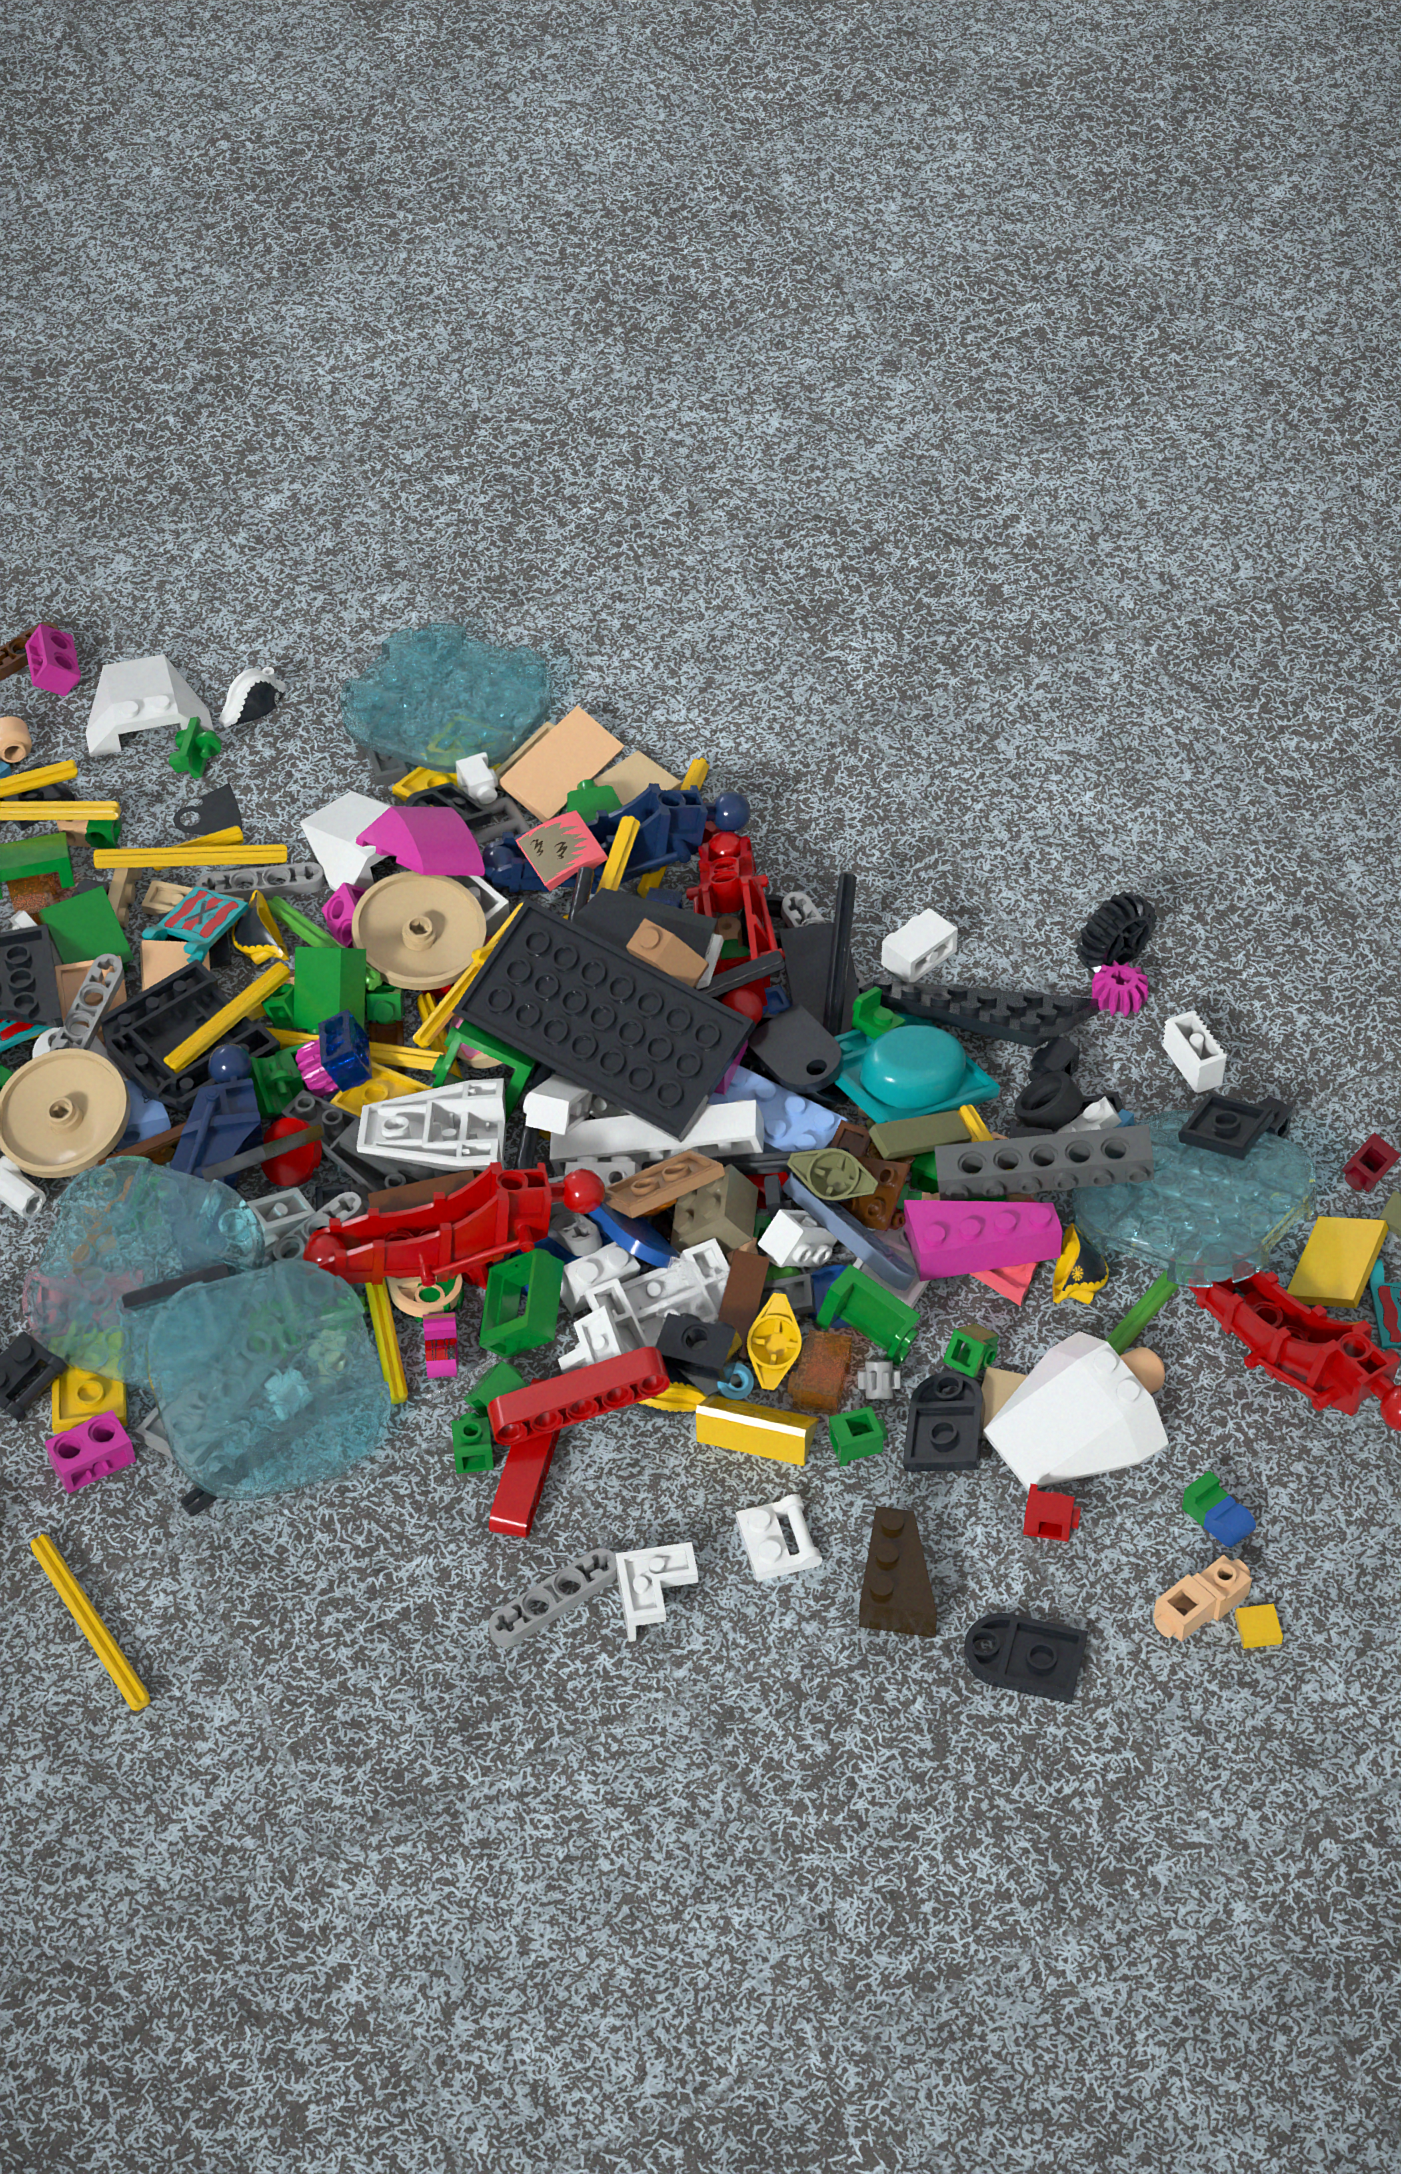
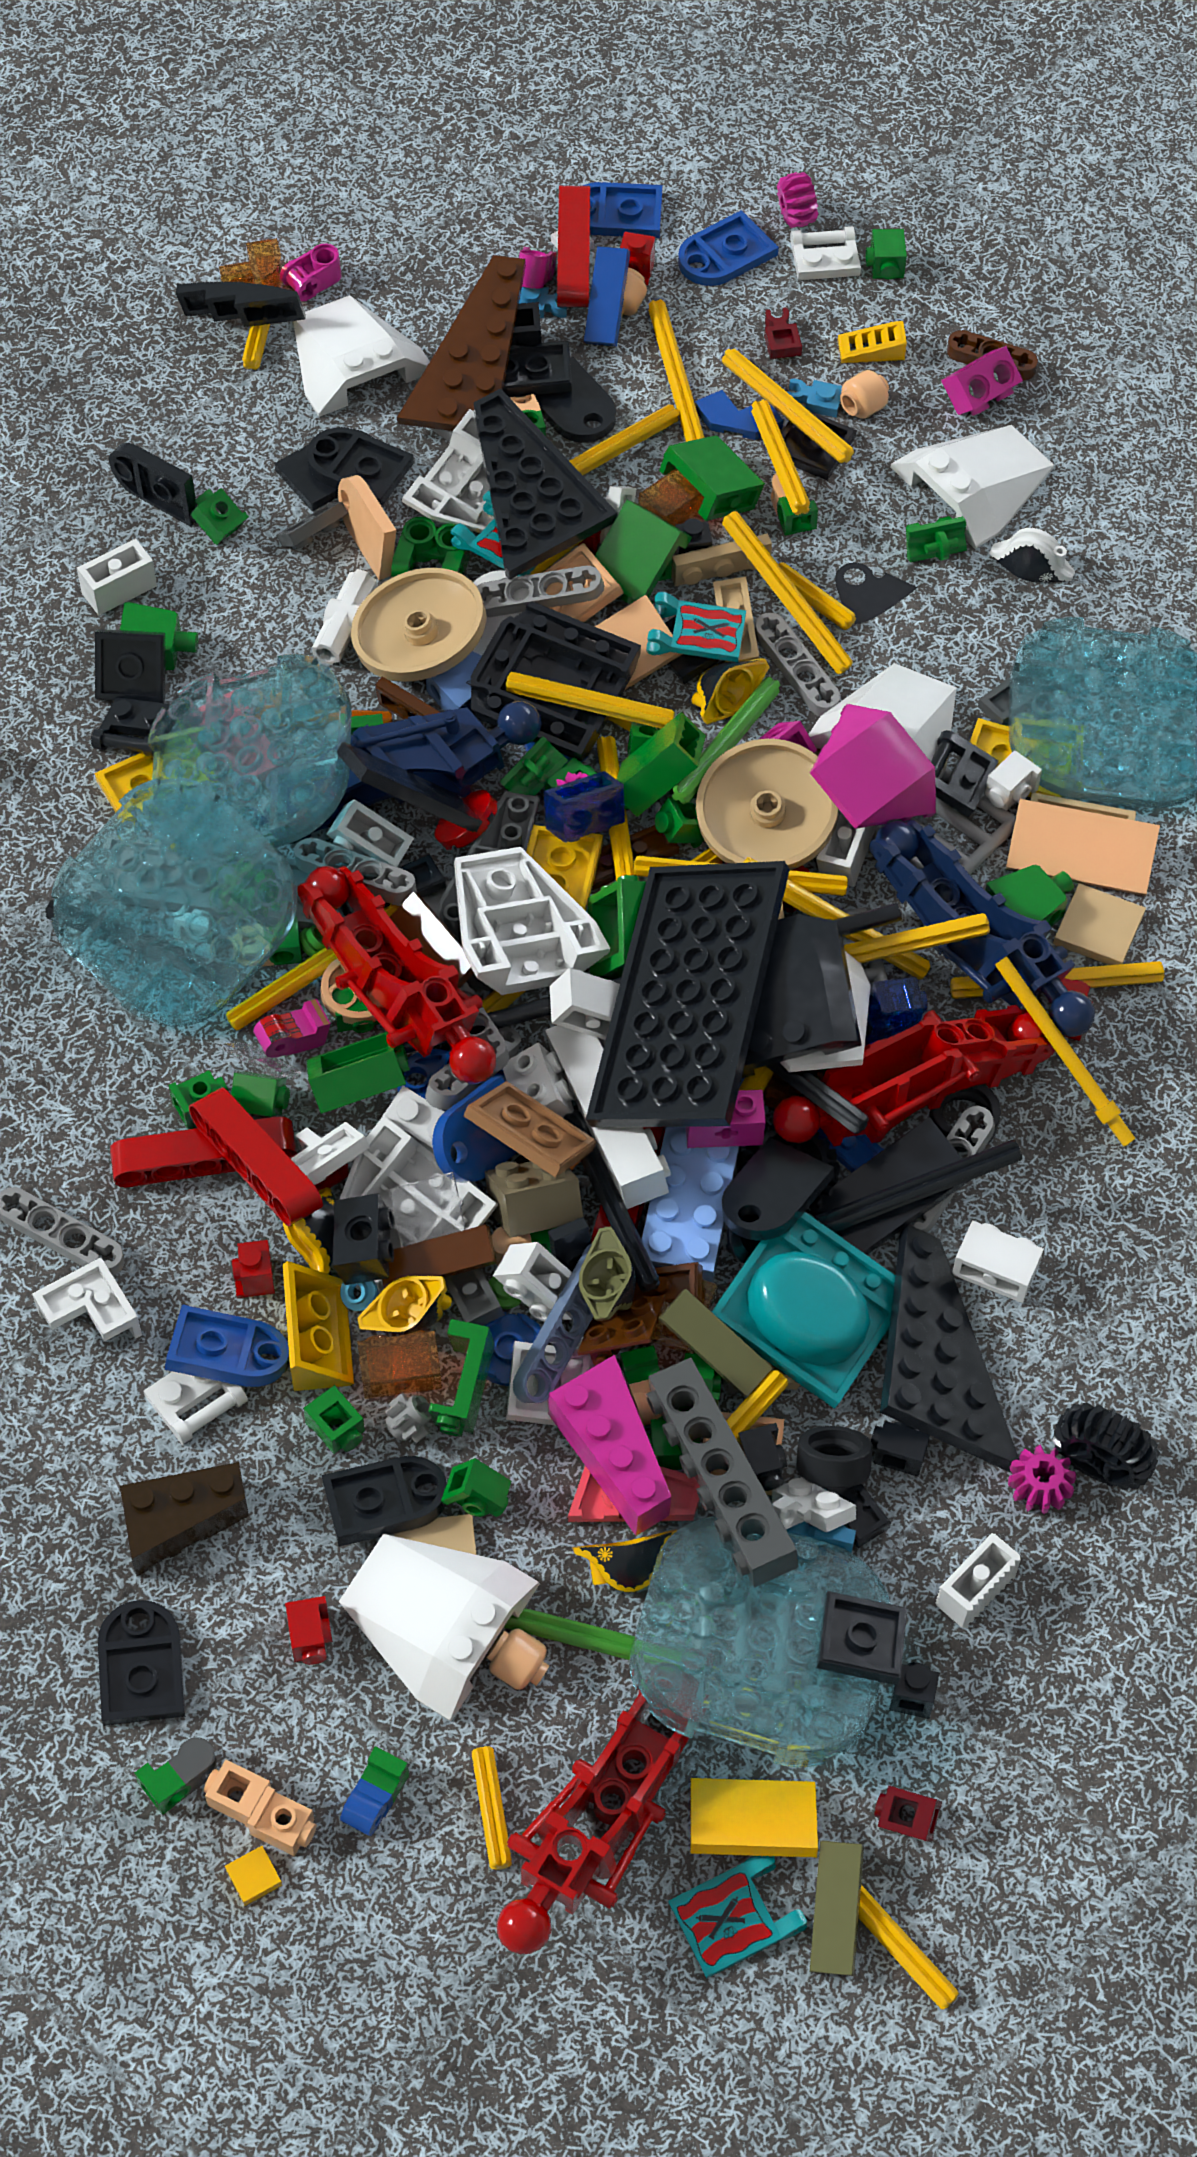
camera: 65 degrees right, 10 degrees up
(90, 1453) = (74, 813): dark pink brick -> none
(165, 1290) = (231, 788): black tile -> none
(561, 848) = (921, 880): slope -> none
(667, 953) = (772, 1009): medium nougat slope -> none
(675, 1450) = (253, 1269): none -> red brick
(745, 1494) = (226, 1348): none -> blue tile
(813, 835) = (1107, 1110): none -> yellow bar
(873, 1018) = (862, 1250): green bracket -> none
(1152, 1656) = (179, 1775): none -> leg
(1260, 1437) = (491, 1808): none -> yellow axle

